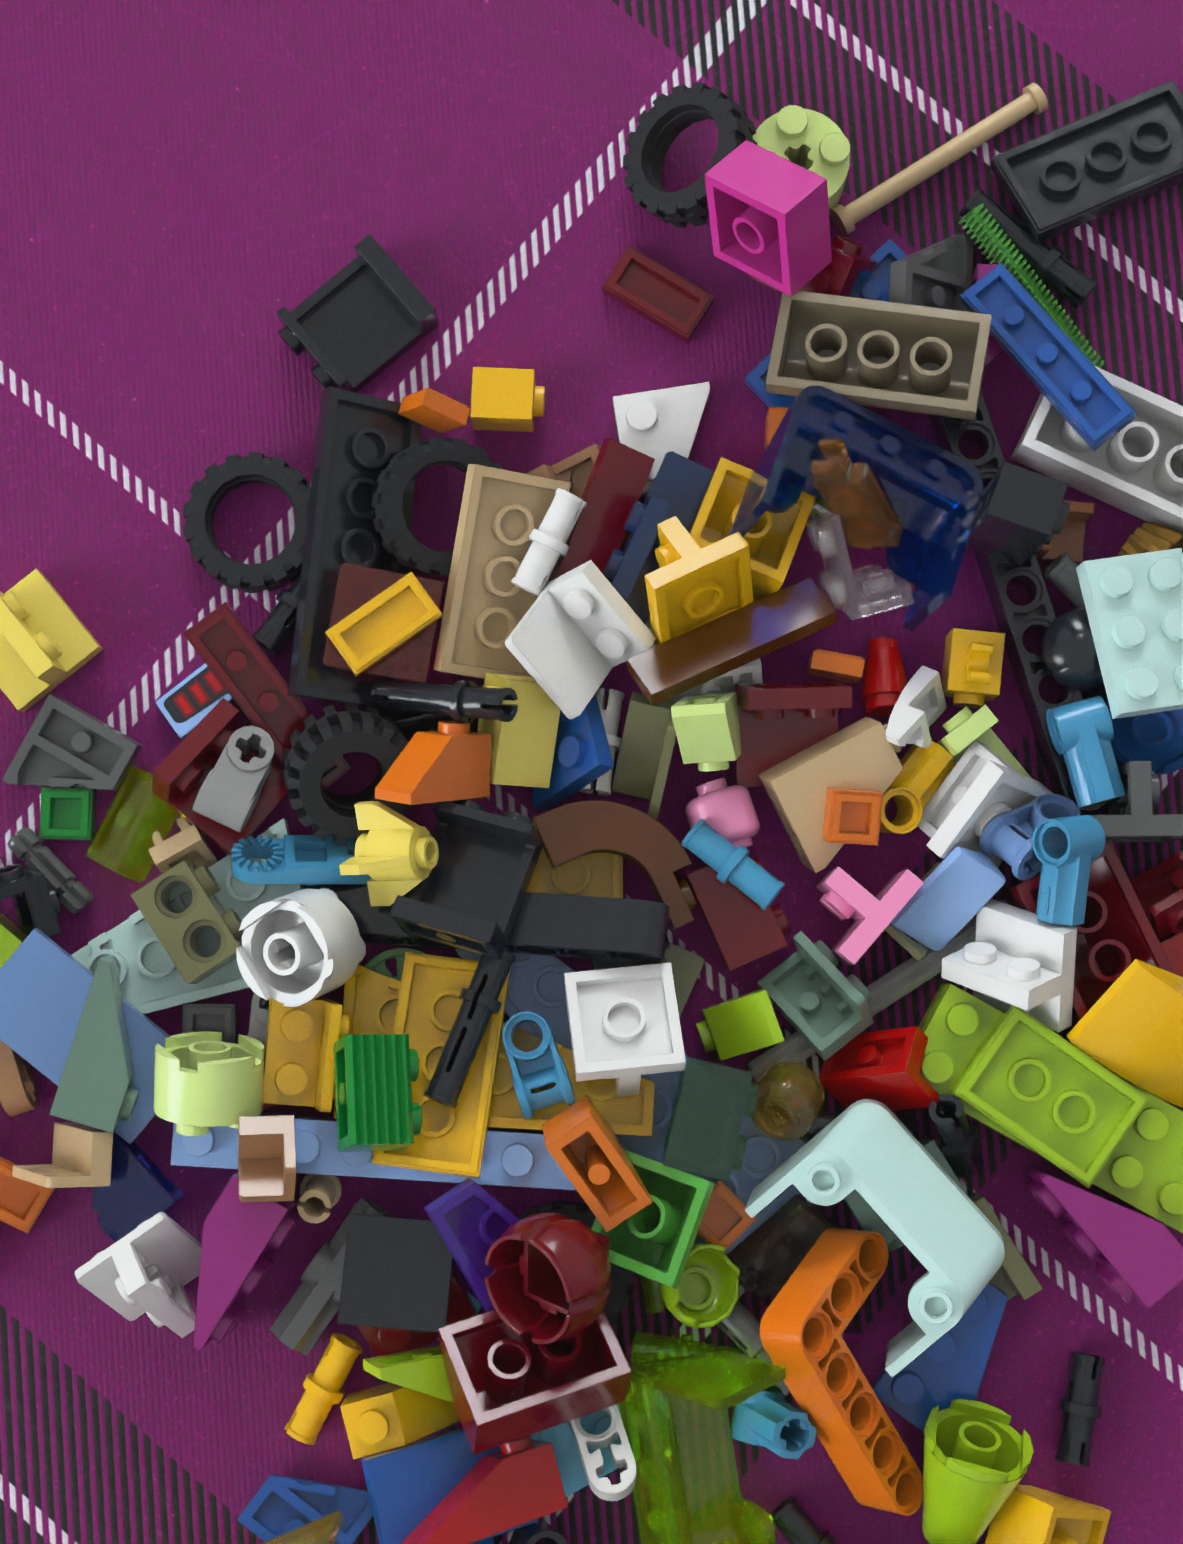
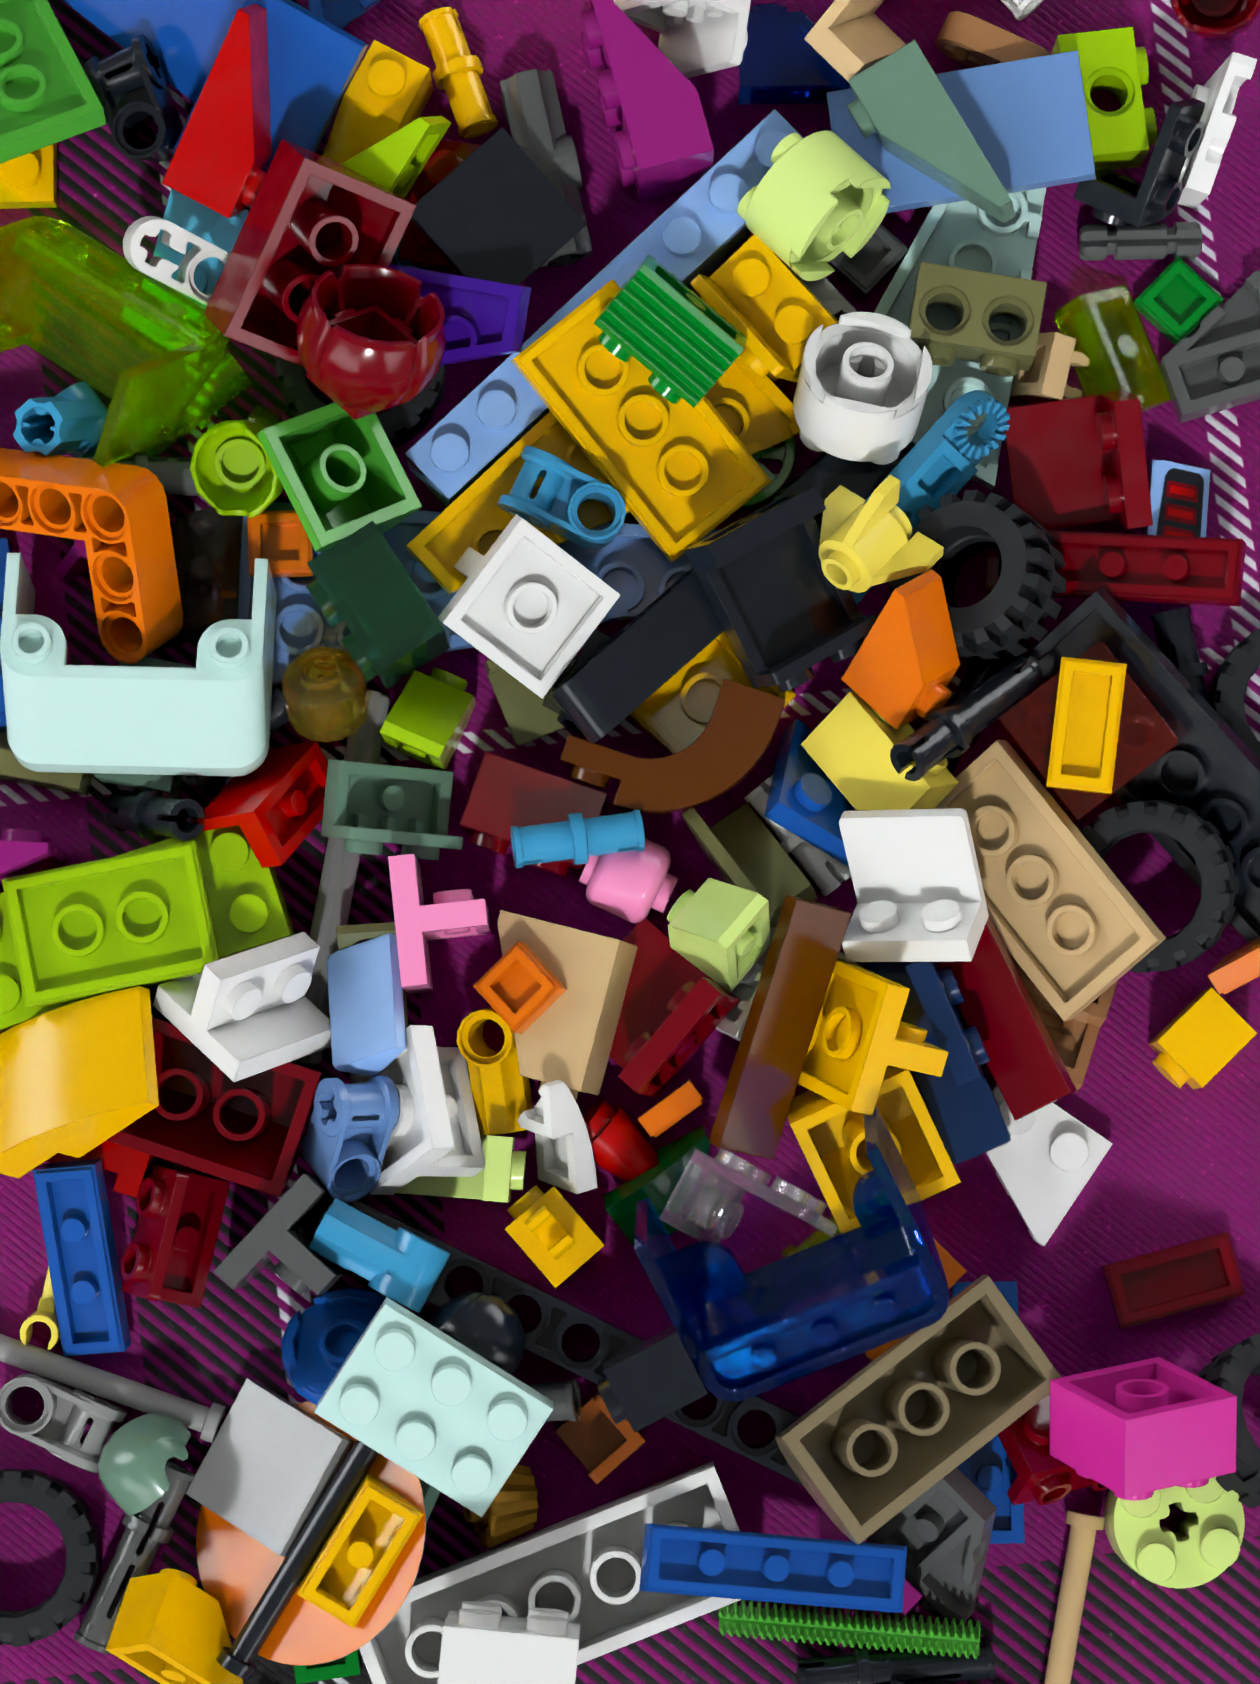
camera: 125 degrees right, 0 degrees up
(234, 785) = (1061, 461): light grey piece -> none
(266, 1158) = (700, 189): medium nougat panel -> none
(318, 1196) = (626, 212): tan pin -> none
(461, 1047) = (649, 468): black pin -> none
(549, 542) = (1025, 946): white pin -> none
(595, 1163) = (430, 468): orange slope -> none
(856, 498) = (805, 1259): clear orange plate -> none
(886, 630) = (655, 1183): none -> dark green slope
(1066, 853) = (310, 1135): dark azure piece -> none

